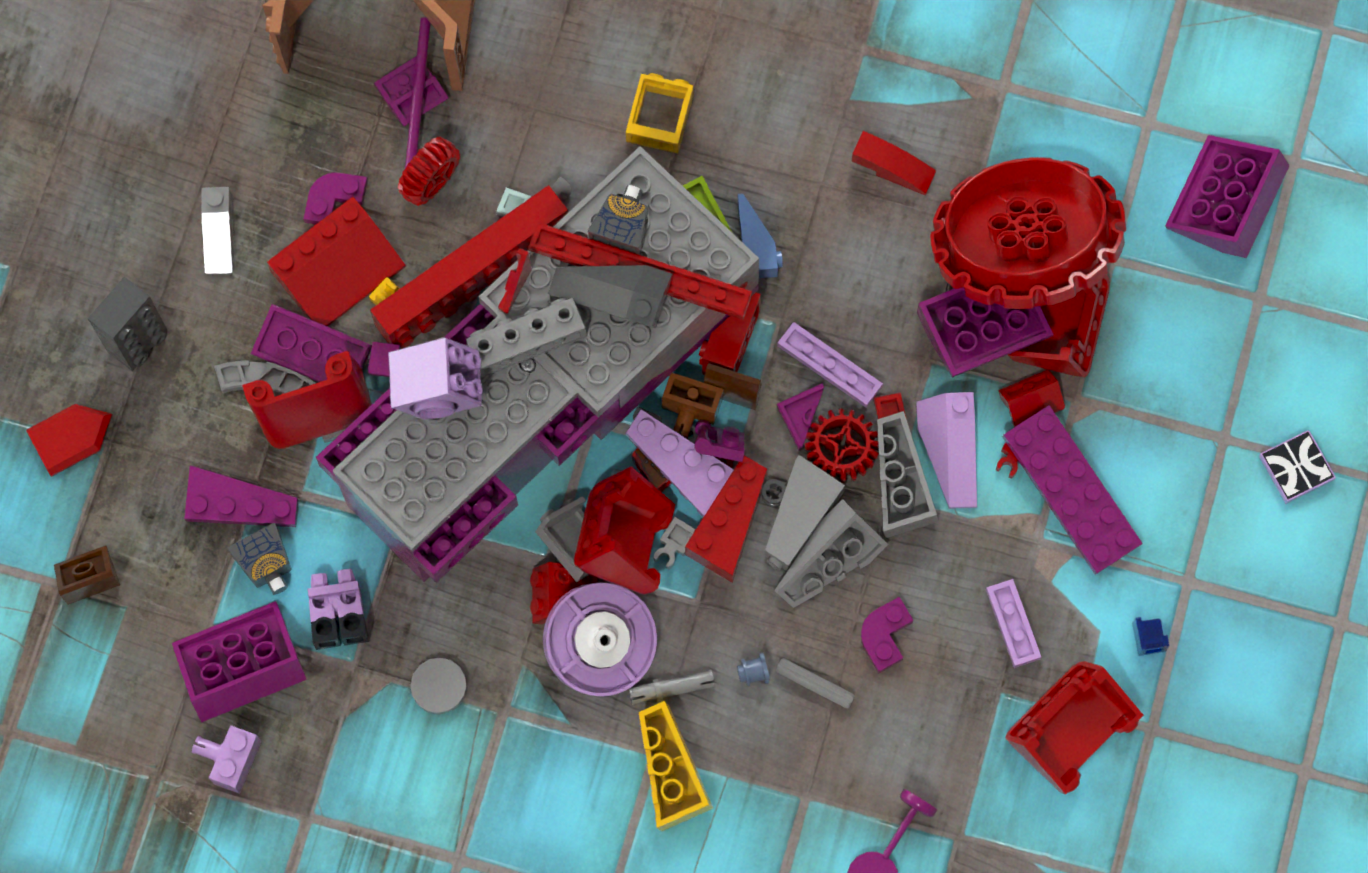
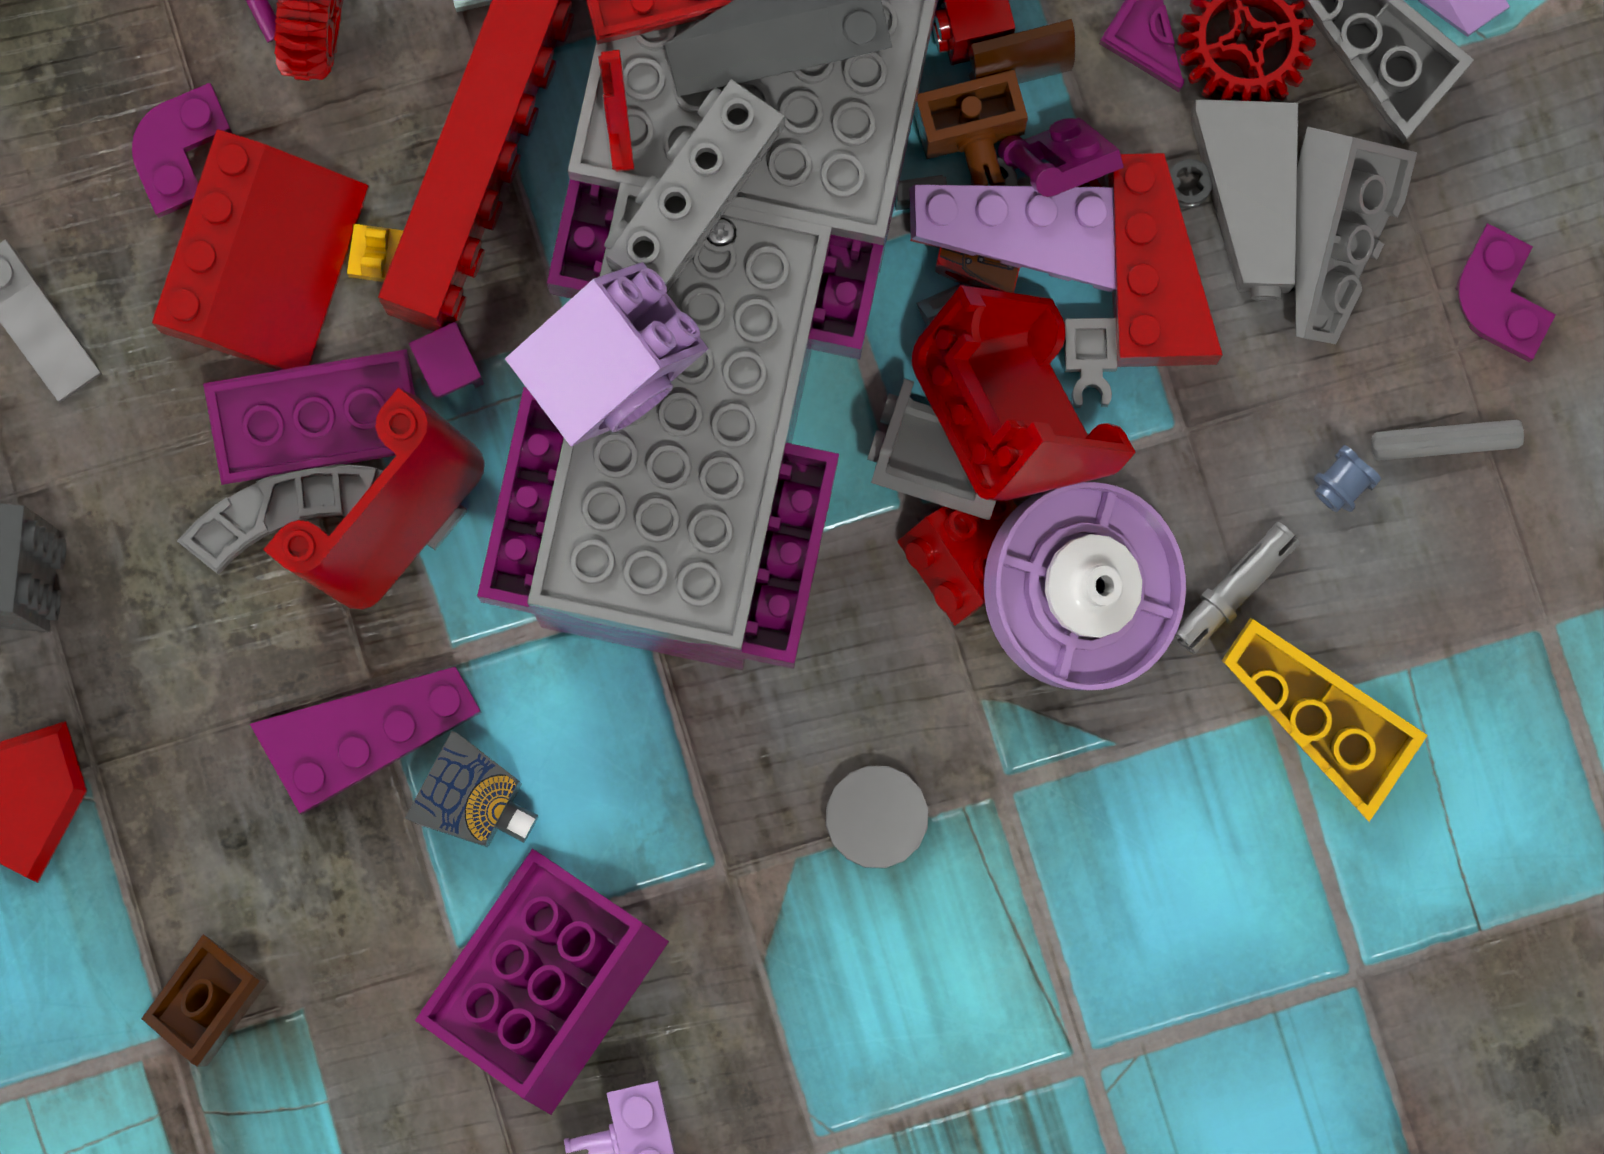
camera: 40 degrees left, 10 degrees up
(335, 601) = (629, 791): hips -> none

